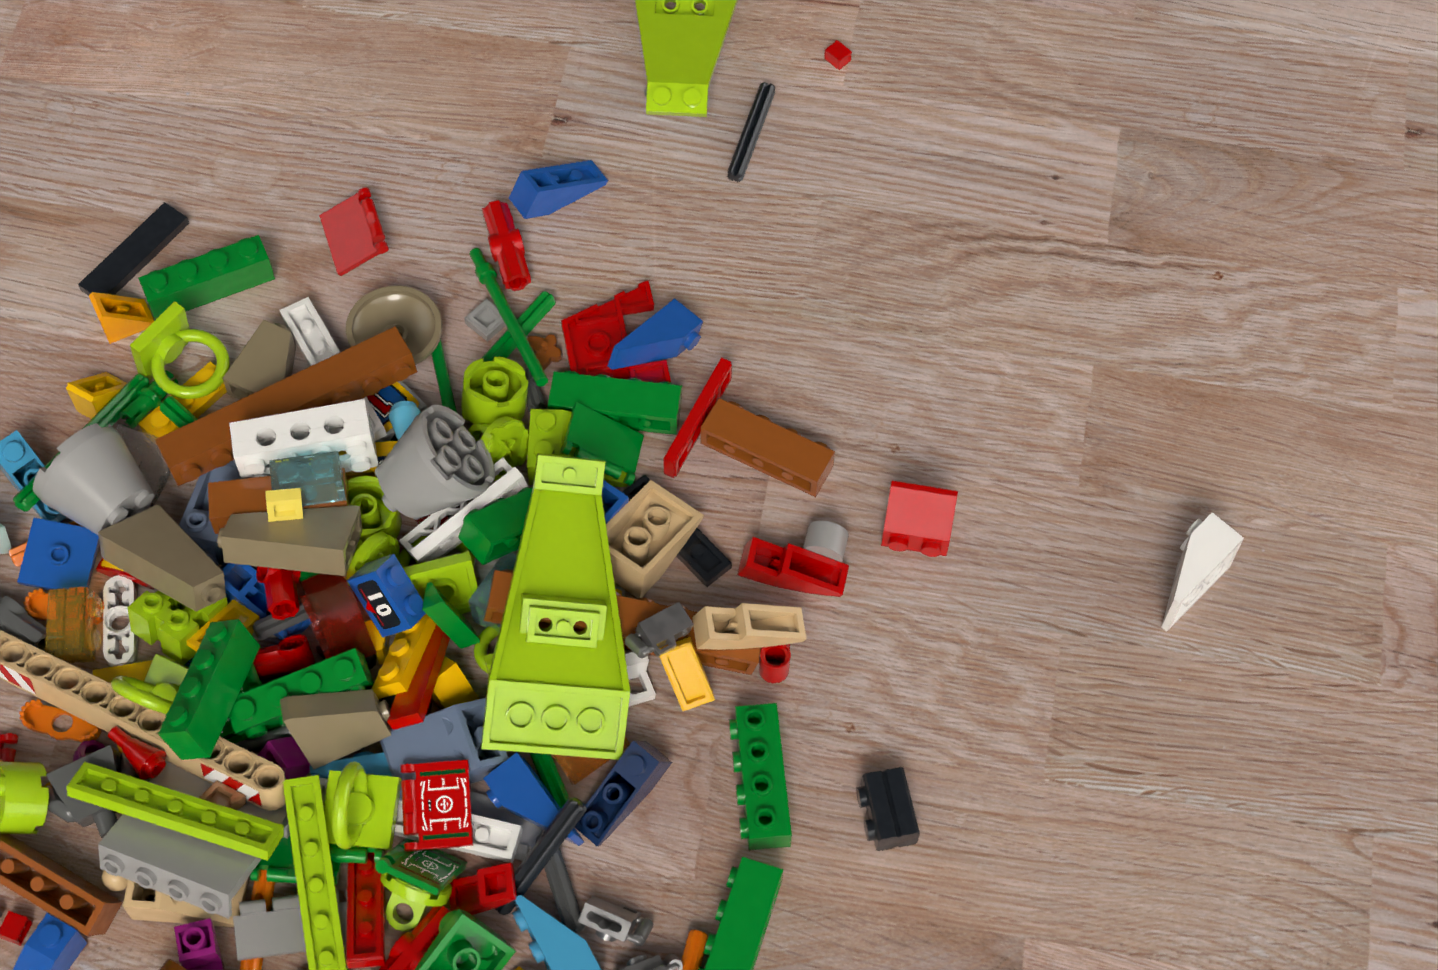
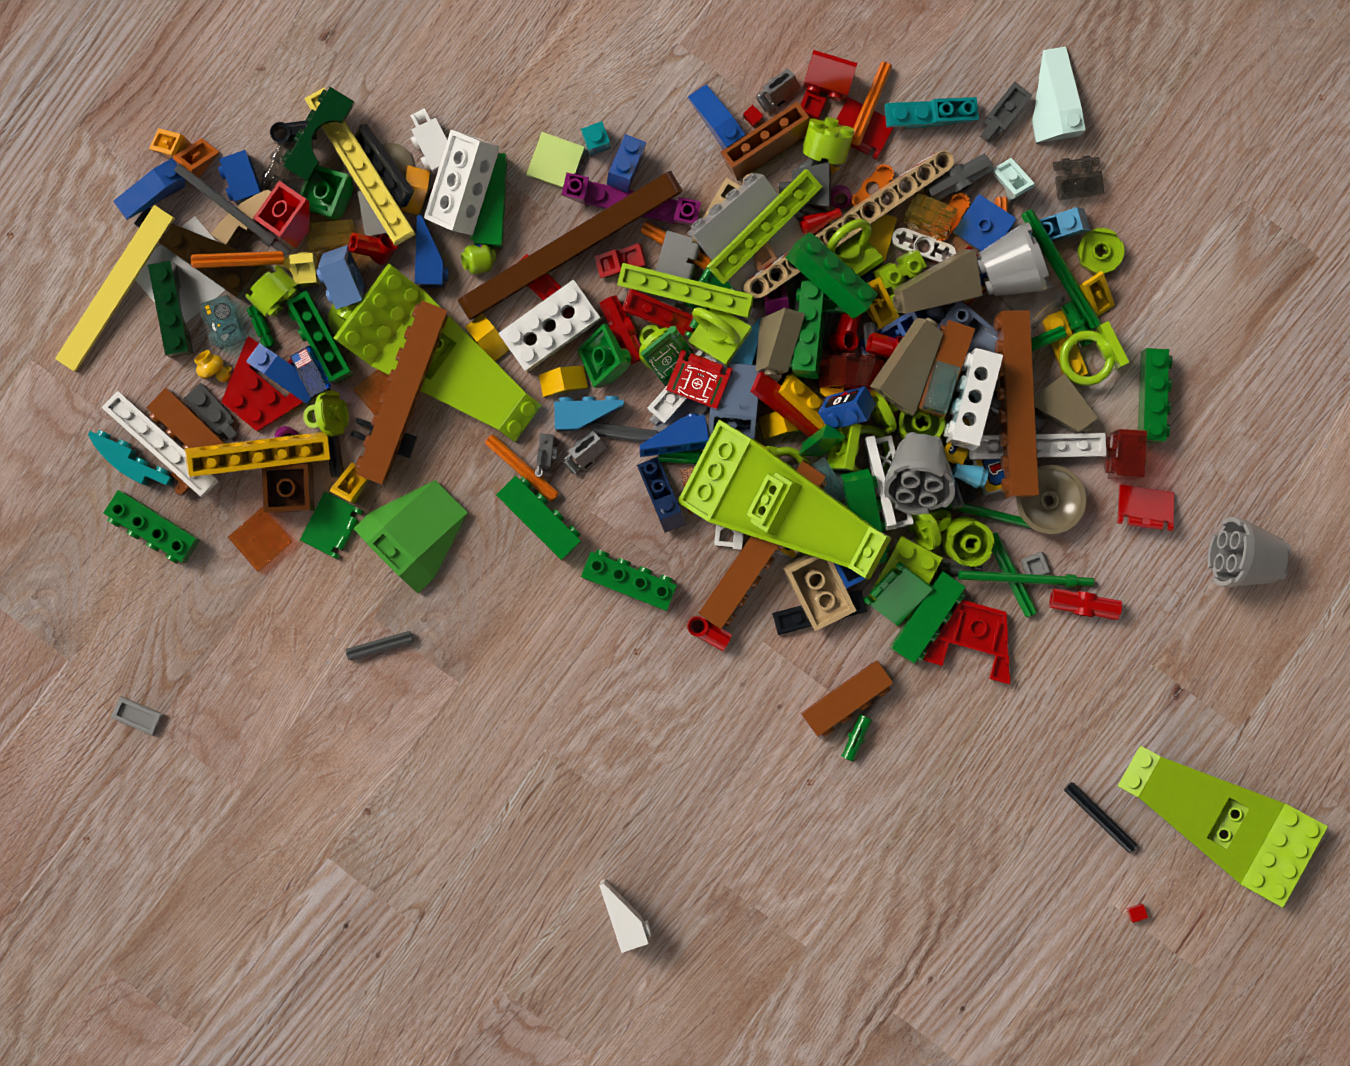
camera: 115 degrees right, 25 degrees up
(49, 427) = (1111, 243): none -> lime plate
(121, 315) = (1151, 329): light orange slope -> none
(135, 251) = (1201, 357): black tile -> none
(284, 504) = (928, 366): light yellow tile -> none
(296, 269) = (1126, 454): none -> clear red brick
(361, 105) = (1246, 555): none -> light grey cone
(484, 891) = (639, 385): red slope -> none
(545, 349) = (991, 592): dark orange piece -> none
(545, 848) = (639, 424): black axle -> none
(551, 188) = (1116, 660): blue slope -> none
(659, 337) = (959, 671): blue slope -> none
(659, 631) = (738, 559): flat silver piece -> none
(687, 675) = (712, 566): yellow tile -> none
(691, 427) = (890, 665): red tile -> none
(748, 626) = (719, 617): tan slope -> none
(792, 568) = (754, 670): red slope -> none
(810, 416) = (849, 752): none -> green pin
(826, 539) = (760, 698): light grey piece -> none
(889, 809) = (571, 644): black brick -> none
(919, 518) = (744, 763): slope -> none

